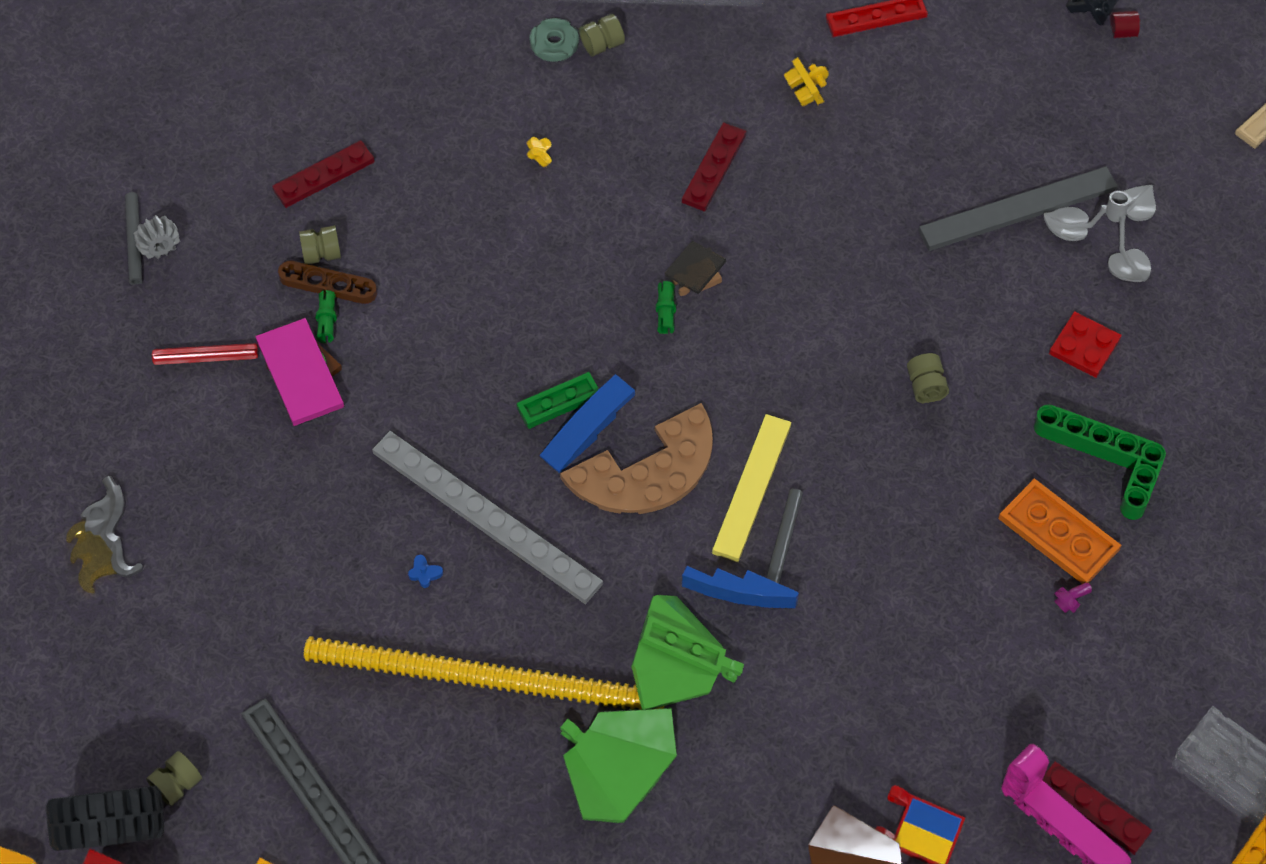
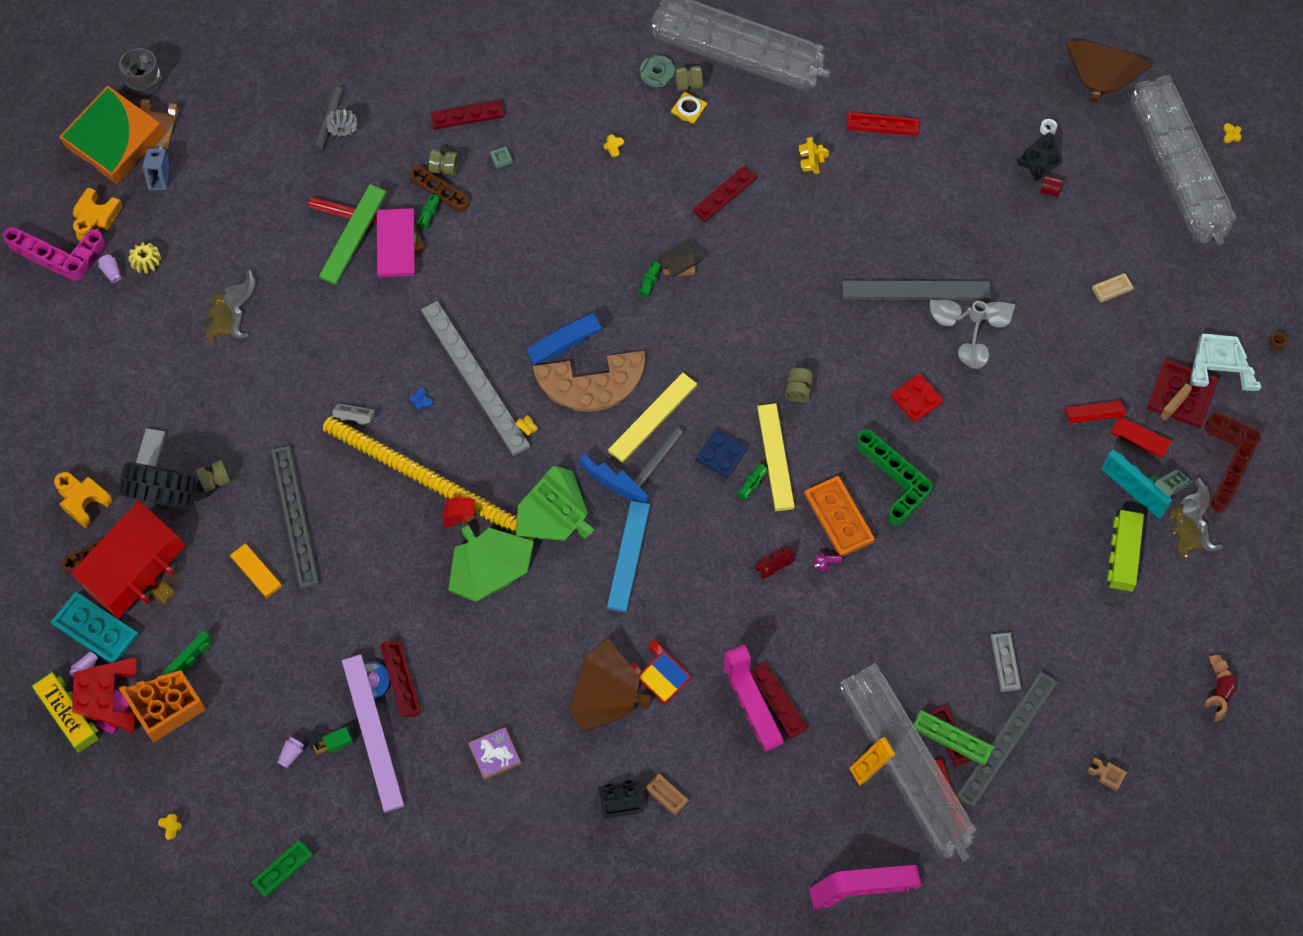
camera: 20 degrees right, 5 degrees up
(64, 769) = (151, 447): none -> light grey tile
(234, 381) = (352, 234): none -> bright green tile
(330, 623) = (358, 414): none -> light grey plate
(394, 214) = (501, 157): none -> sand green tile
(547, 703) = (458, 510): none -> red brick
(557, 400) = (551, 317): green plate -> none
(587, 555) = (526, 425): none -> yellow piece
(625, 83) = (690, 117): none -> yellow piece
(804, 685) = (628, 556): none -> dark azure tile
(865, 503) = (721, 453): none -> dark blue plate
(924, 526) = (752, 481): none -> green pin
(939, 484) = (775, 457): none -> light yellow tile
(1010, 613) = (781, 558): none -> dark red hinge

